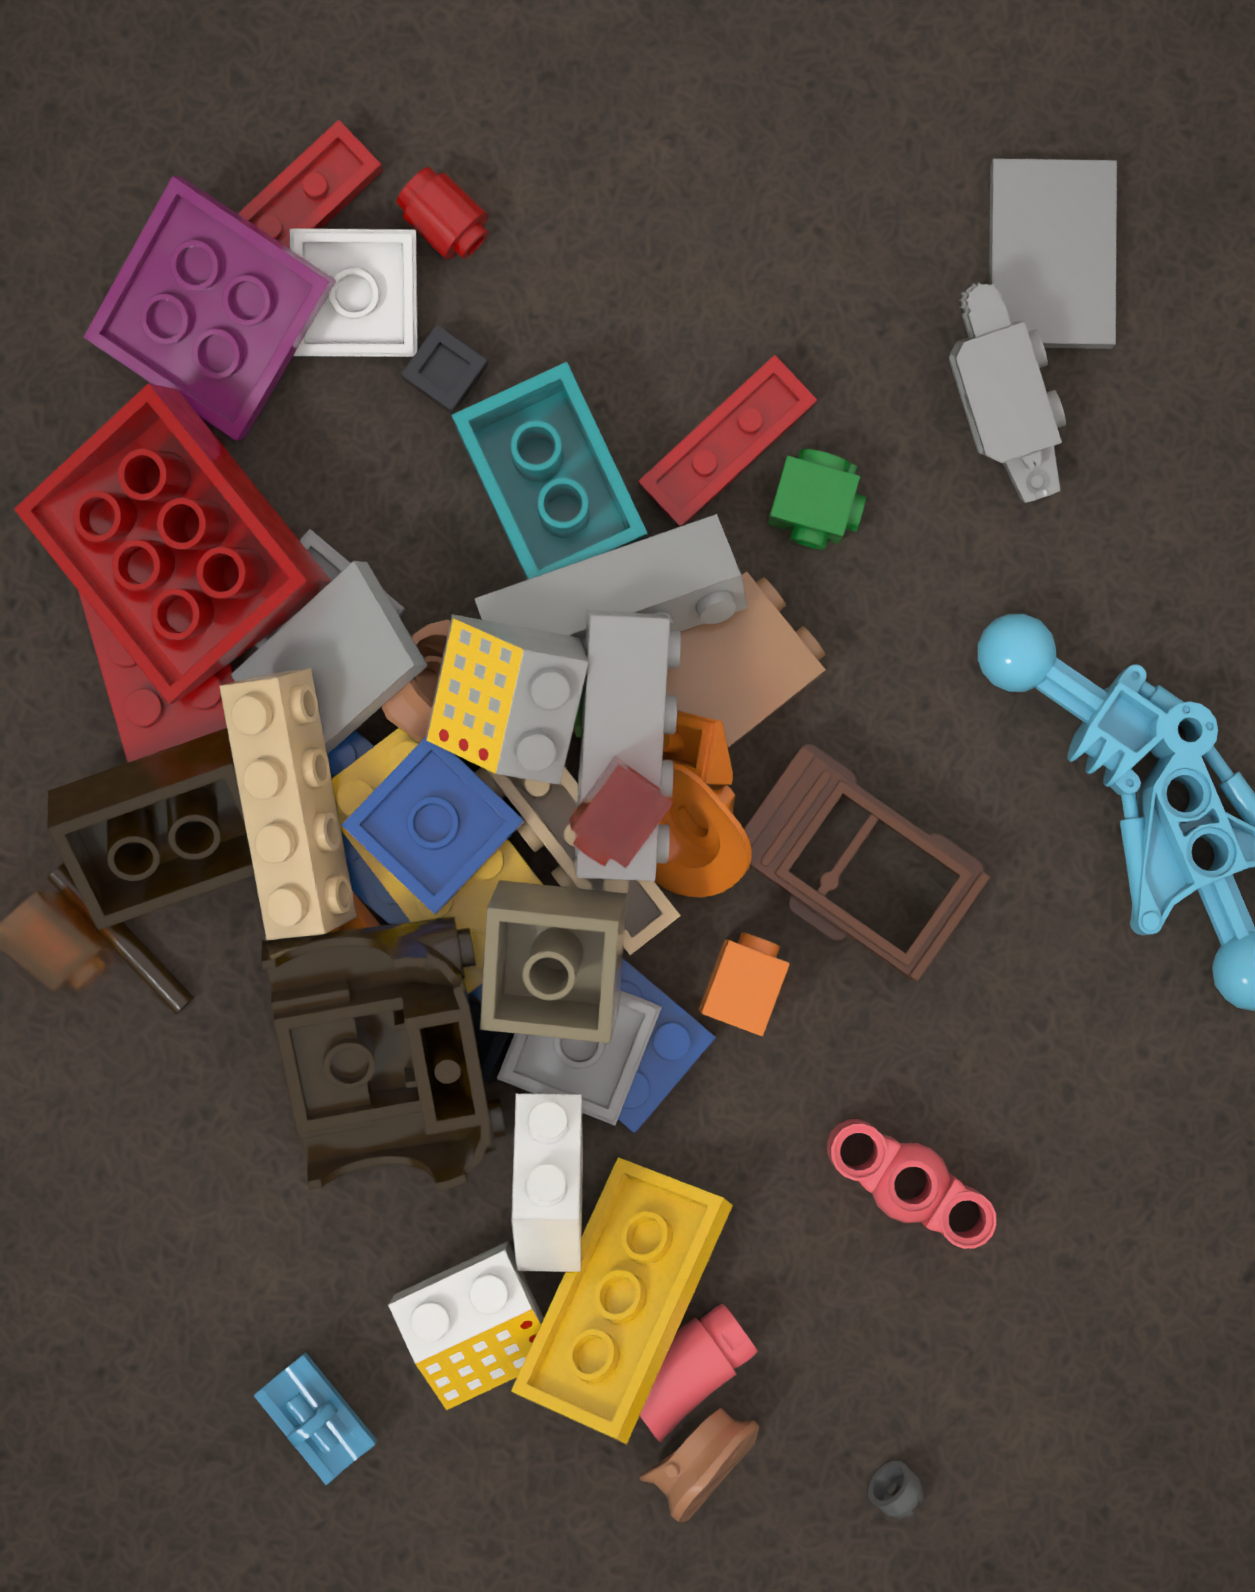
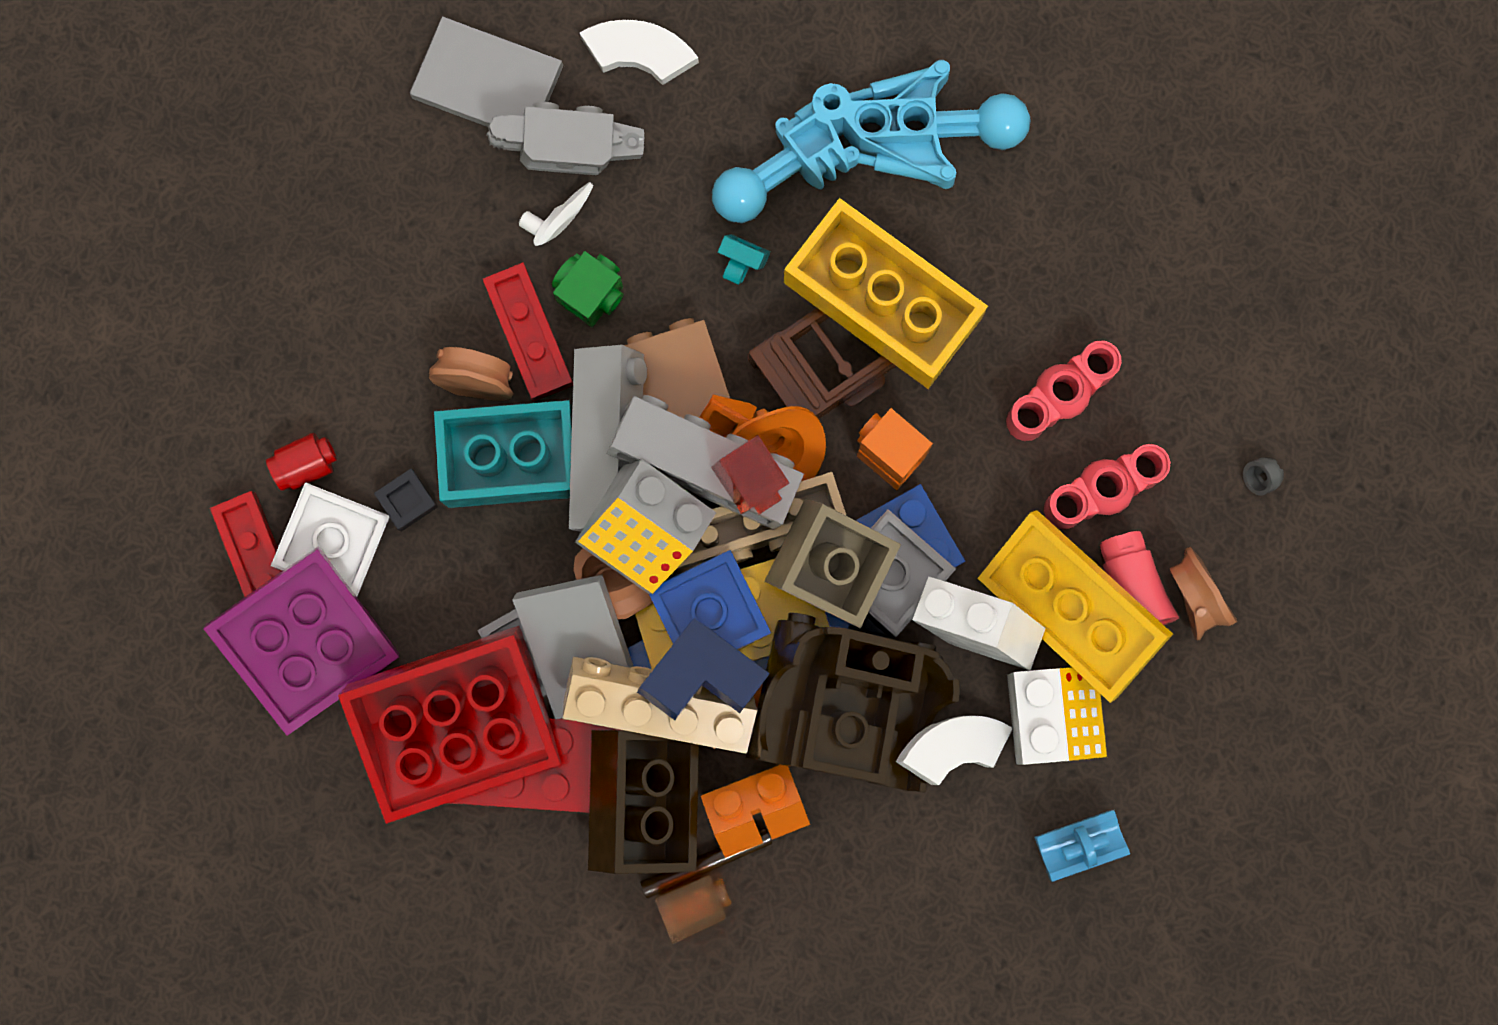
camera: 65 degrees left, 5 degrees down
(231, 987) = (733, 807): none -> orange piece
(362, 842) = (697, 661): none -> dark blue tile
(386, 1203) = (952, 743): none -> white tile
(642, 390) = (472, 374): none -> nougat hat
(821, 1310) = (1121, 472): none -> coral piece
(896, 423) = (557, 220): none -> white bar
(936, 688) = (742, 255): none -> teal tile
(943, 897) = (884, 293): none -> yellow brick
(1176, 441) = (639, 46): none -> white tile

